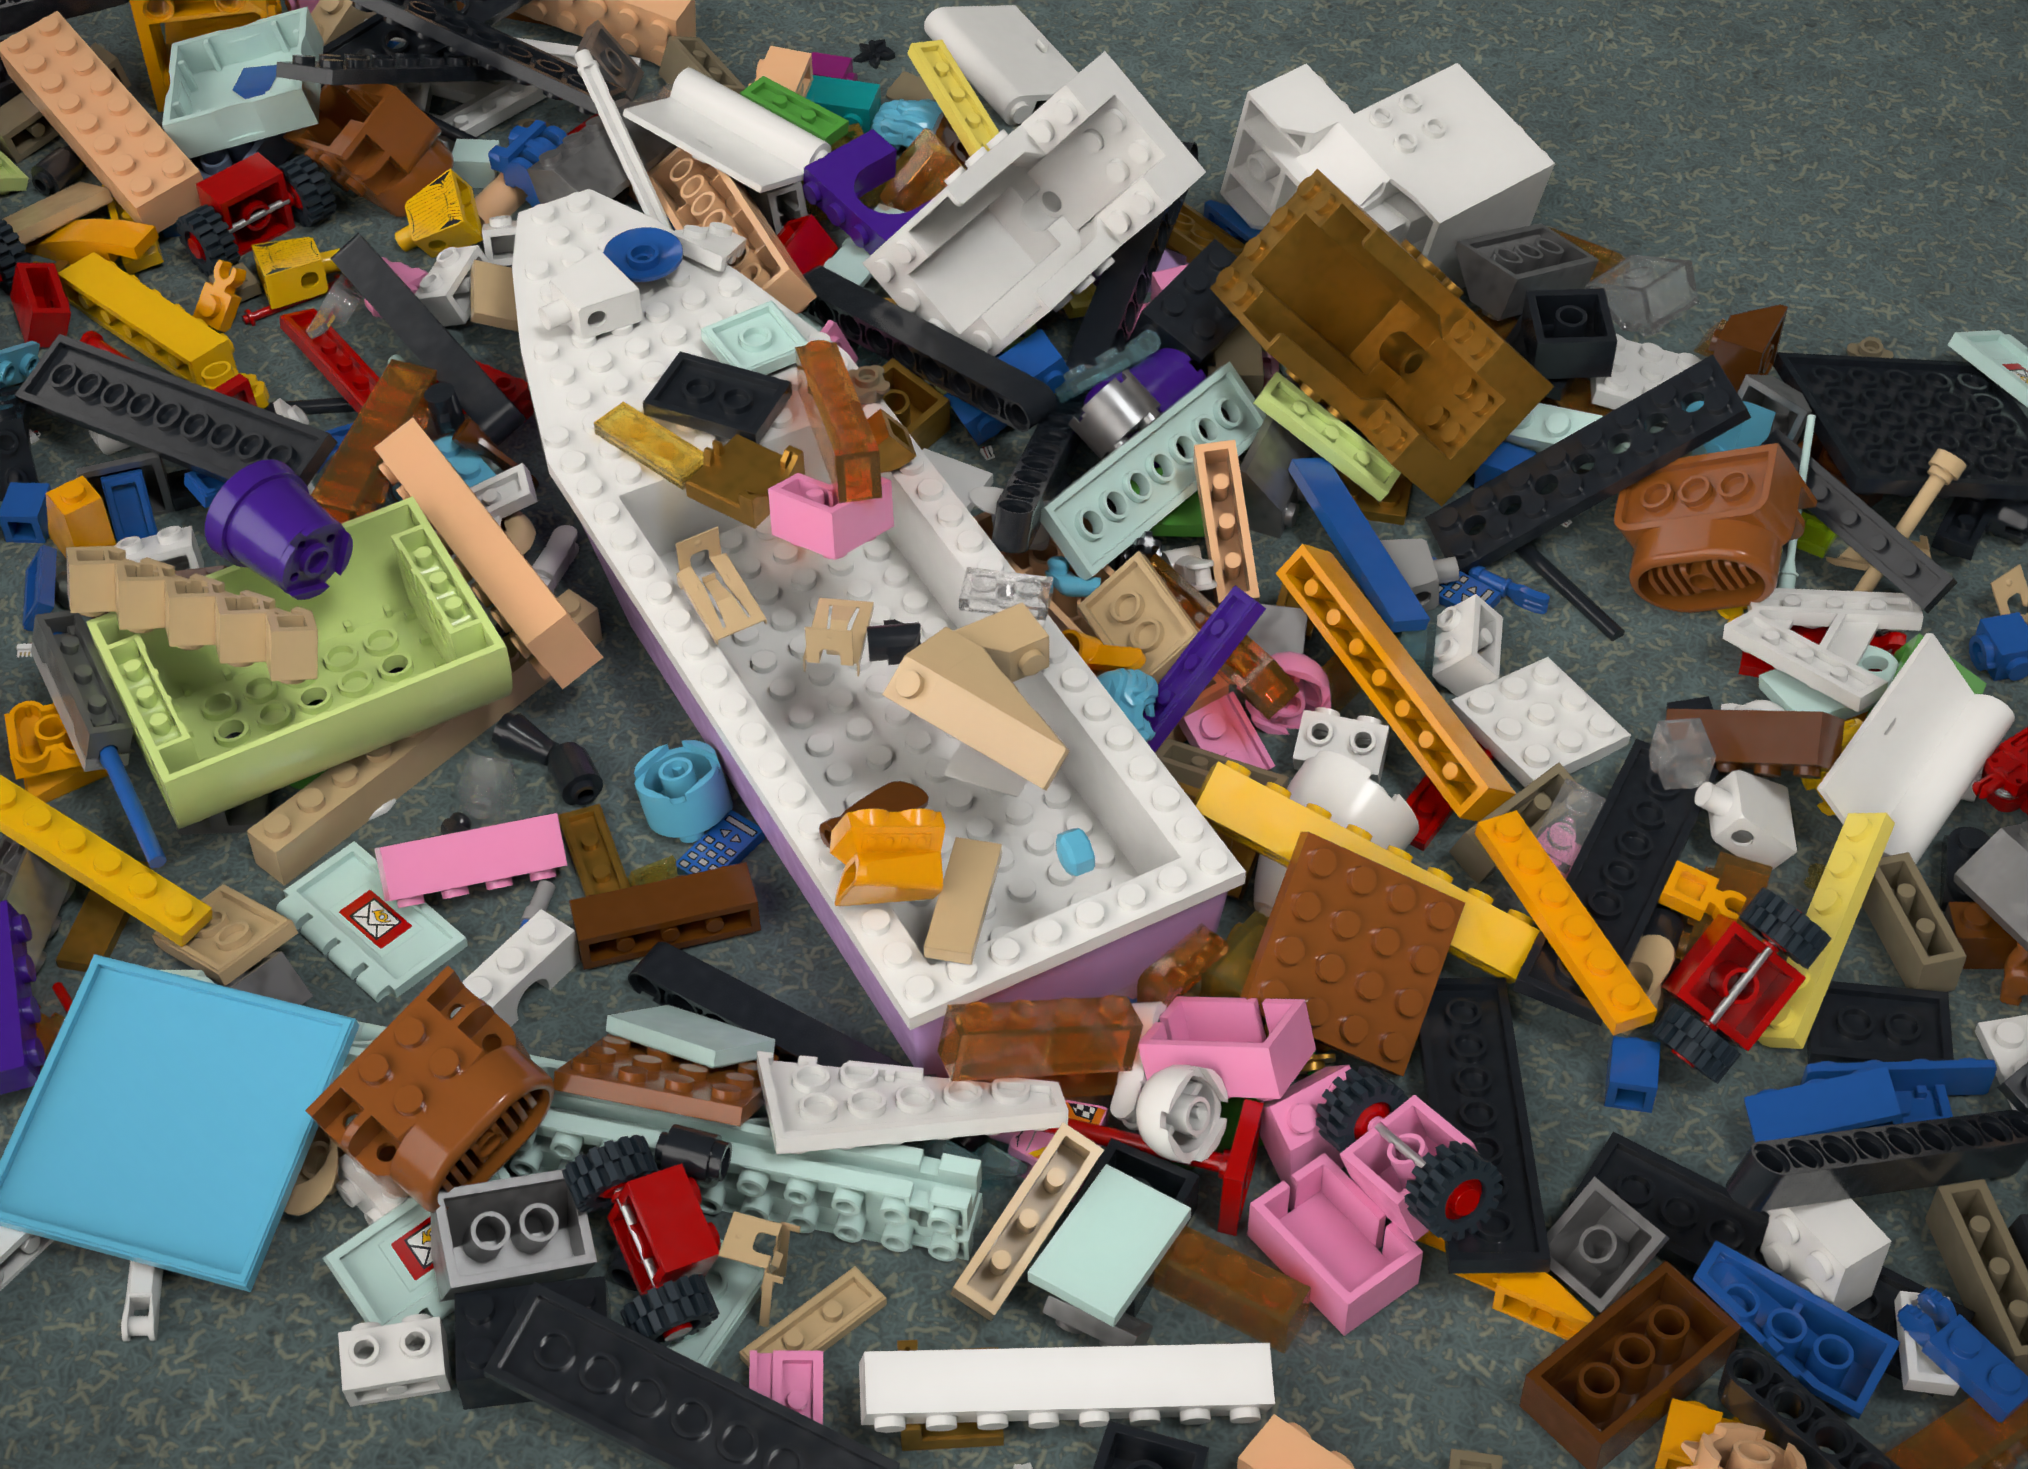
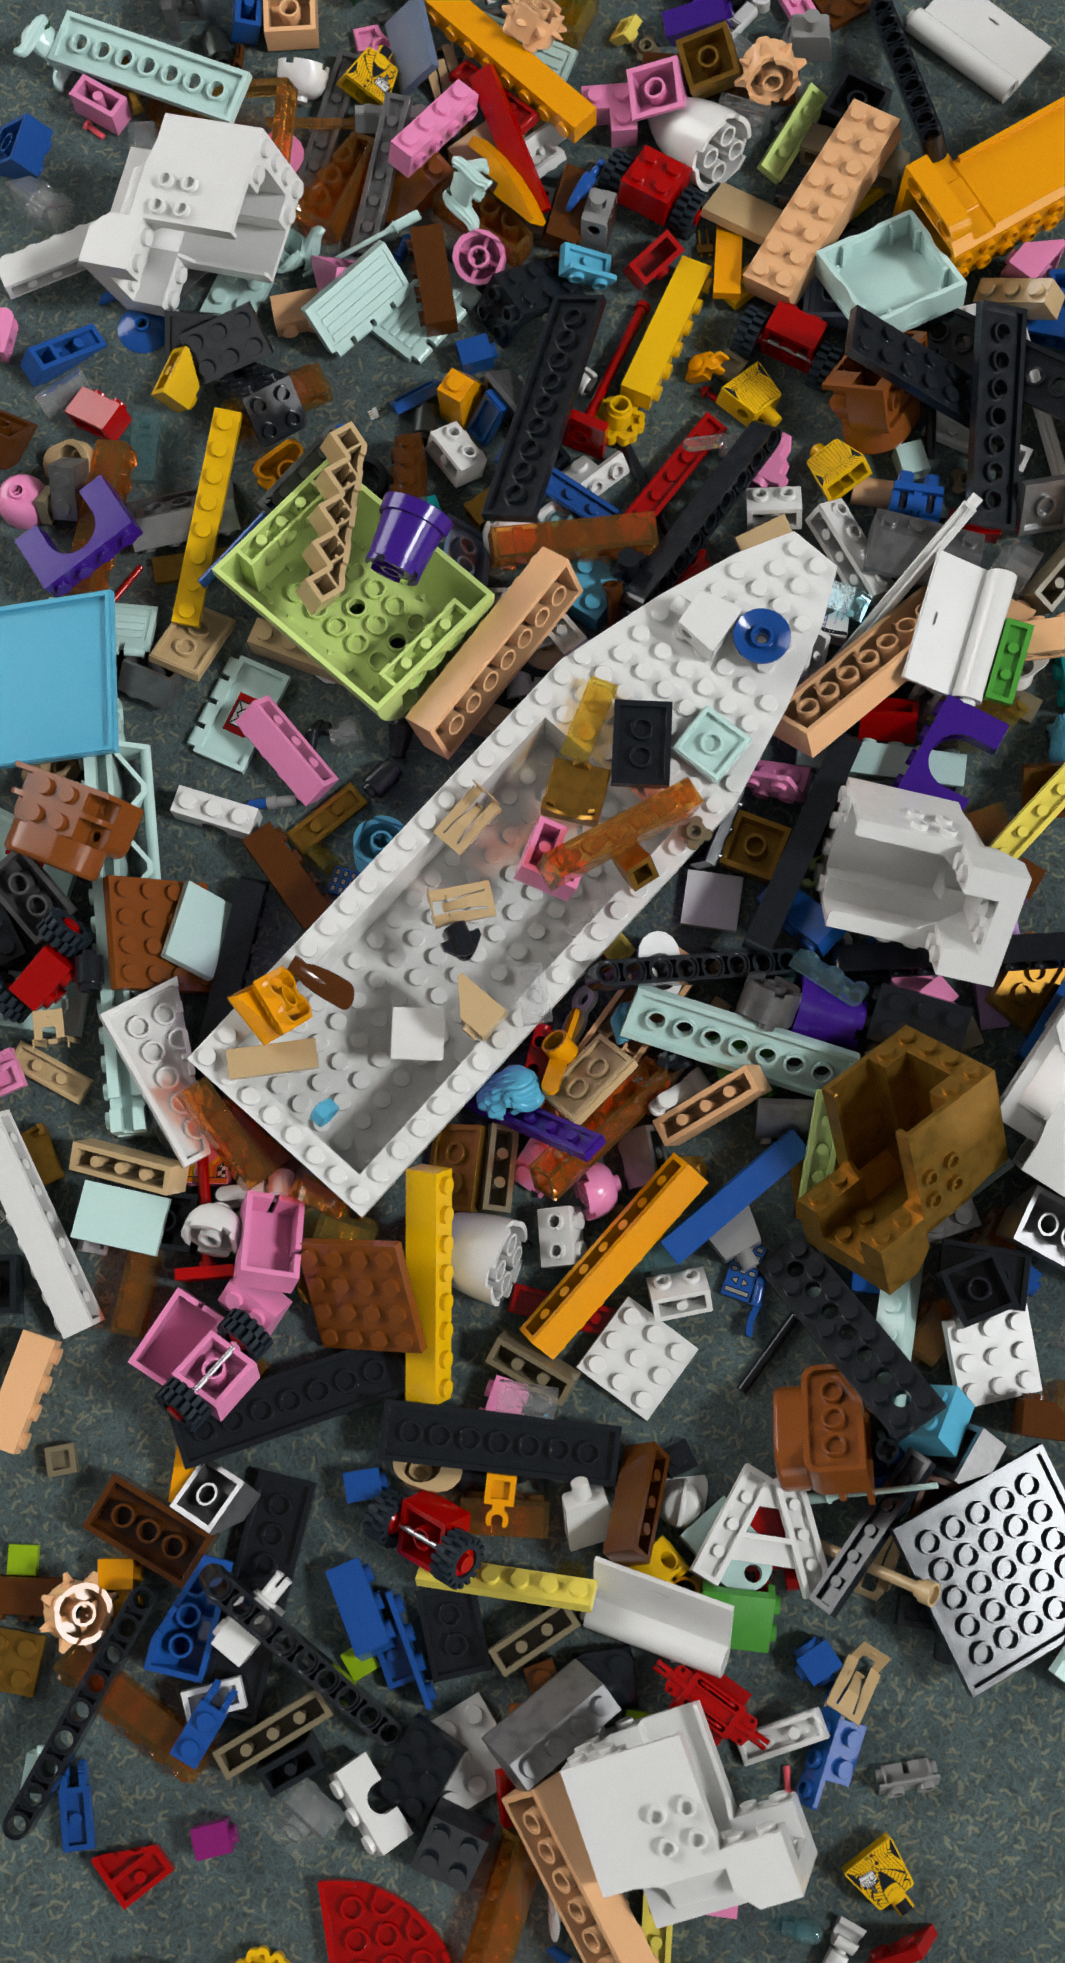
camera: 75 degrees right, 30 degrees up
(255, 81) = (901, 283): blue sticker -> none
(711, 245) = (809, 671): white wing -> none
(920, 173) = (998, 777): clear orange bracket -> none
(971, 699) = (414, 1002): tan wedge -> none
(1566, 923) = (438, 1417): light orange plate -> none
(1681, 753) = (604, 1460): clear brick -> none

